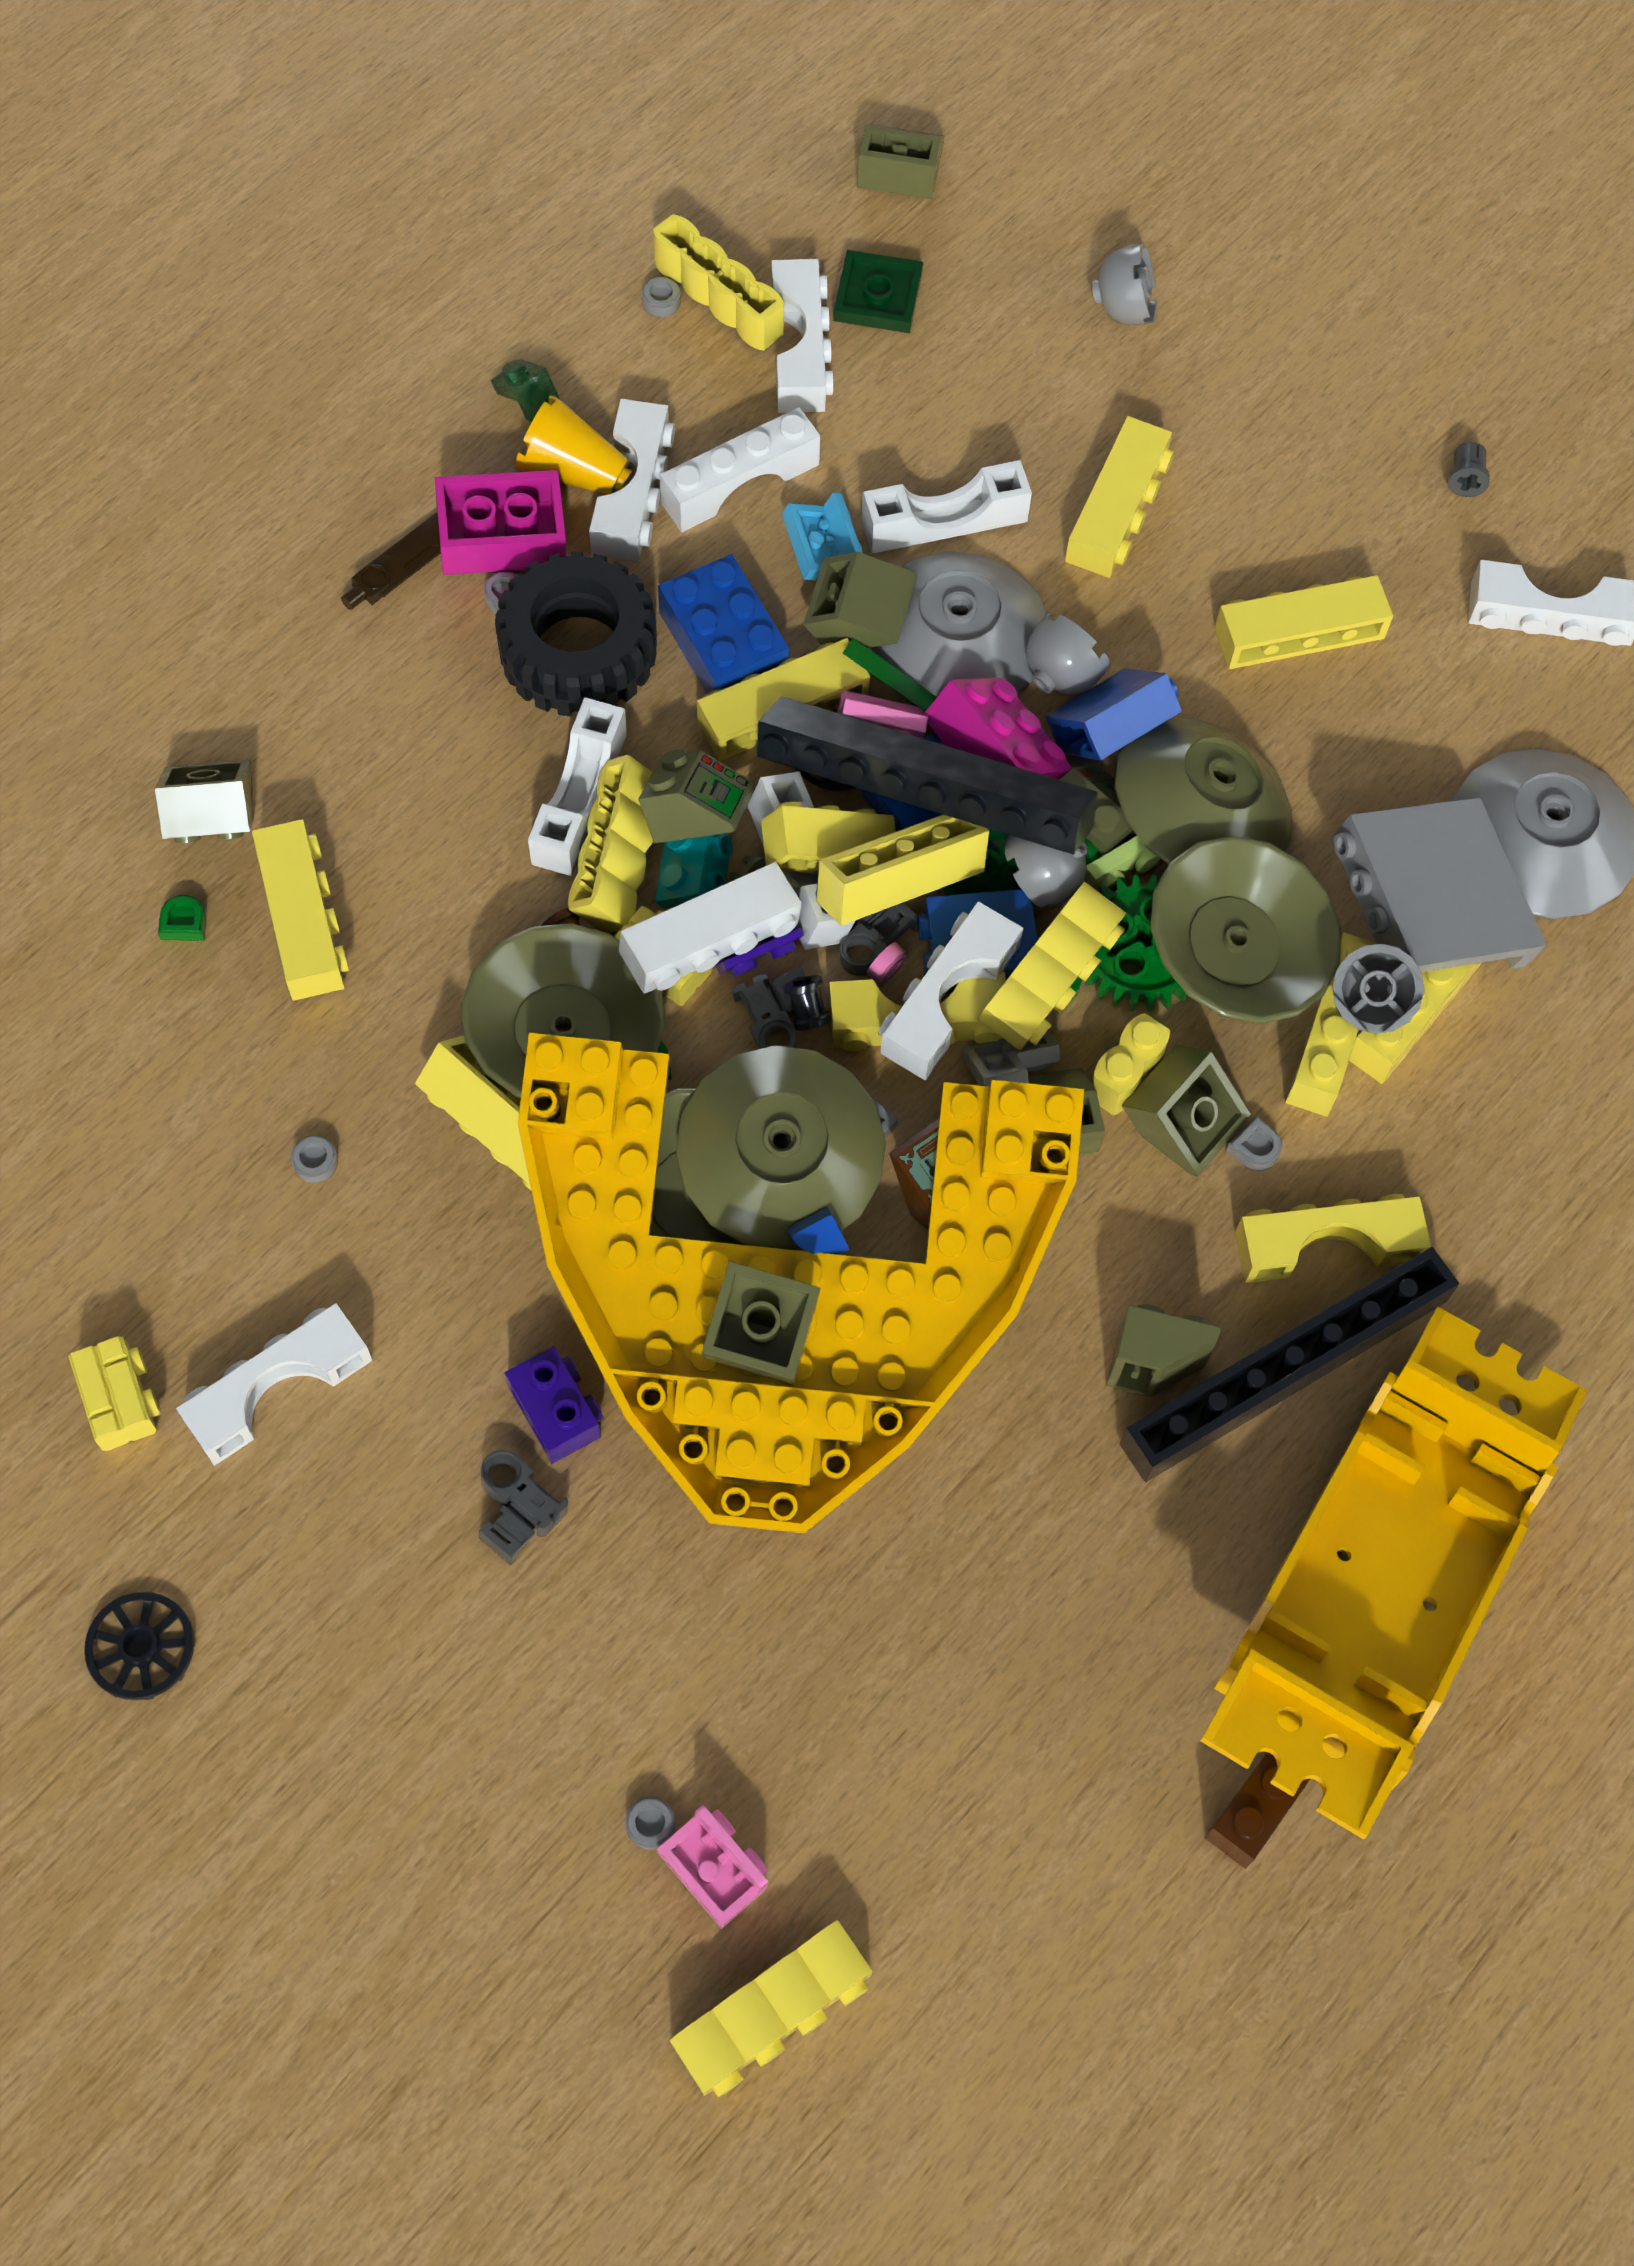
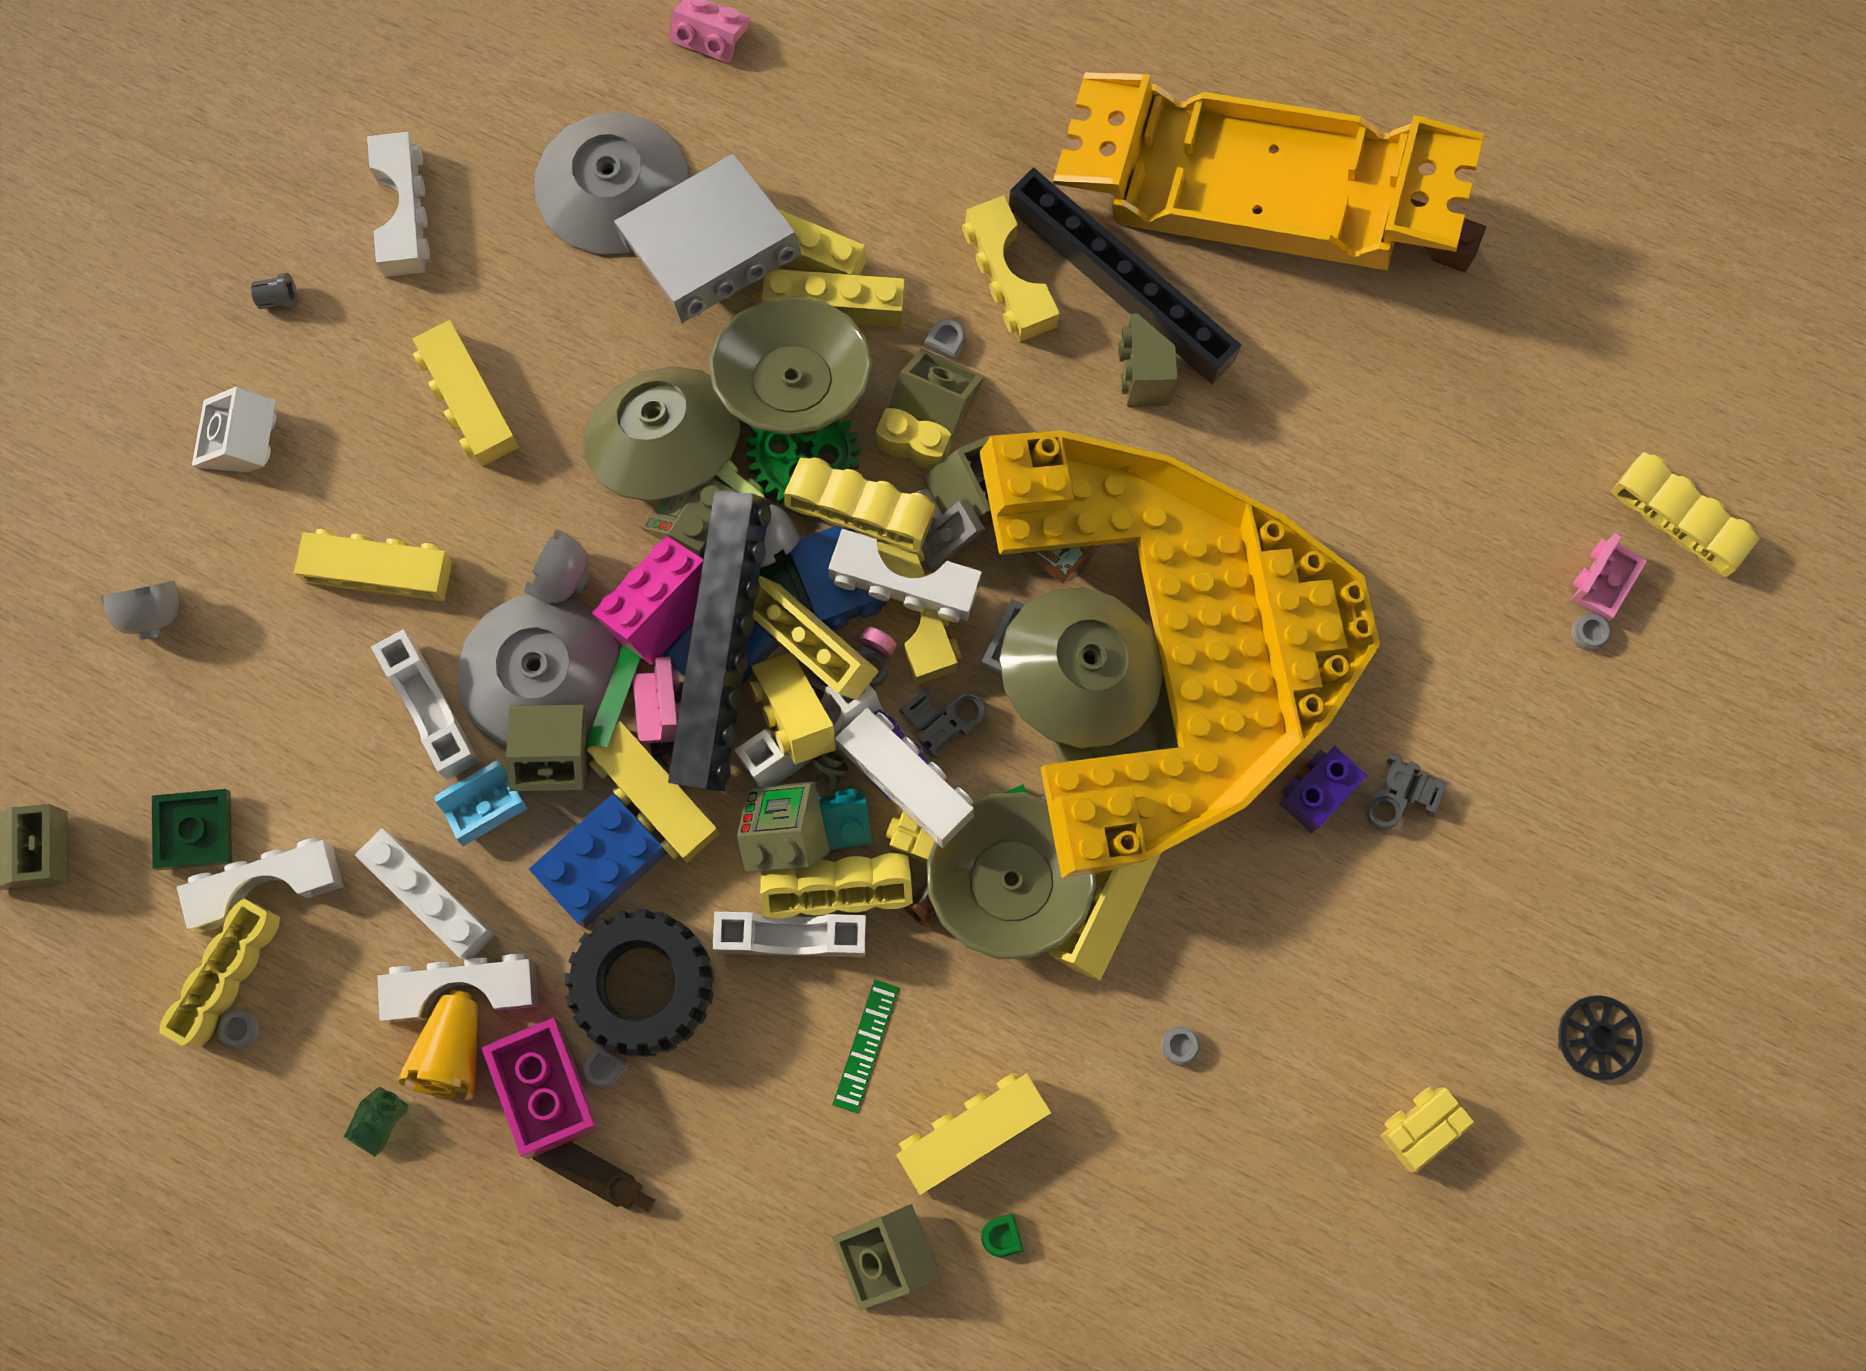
camera: 105 degrees left, 10 degrees up
(224, 1411) = (1337, 977): white arch -> none
(437, 844) = (865, 1046): none -> green sticker
(761, 1322) = (1244, 634): olive slope -> none
(807, 1002) = (932, 692): black bush -> none
(819, 1234) = (1144, 619): blue tile -> none
(1114, 713) = (605, 515): blue brick -> none
(1307, 404) = (235, 431): none -> white slope
(1378, 988) = (823, 253): light grey cylinder -> none

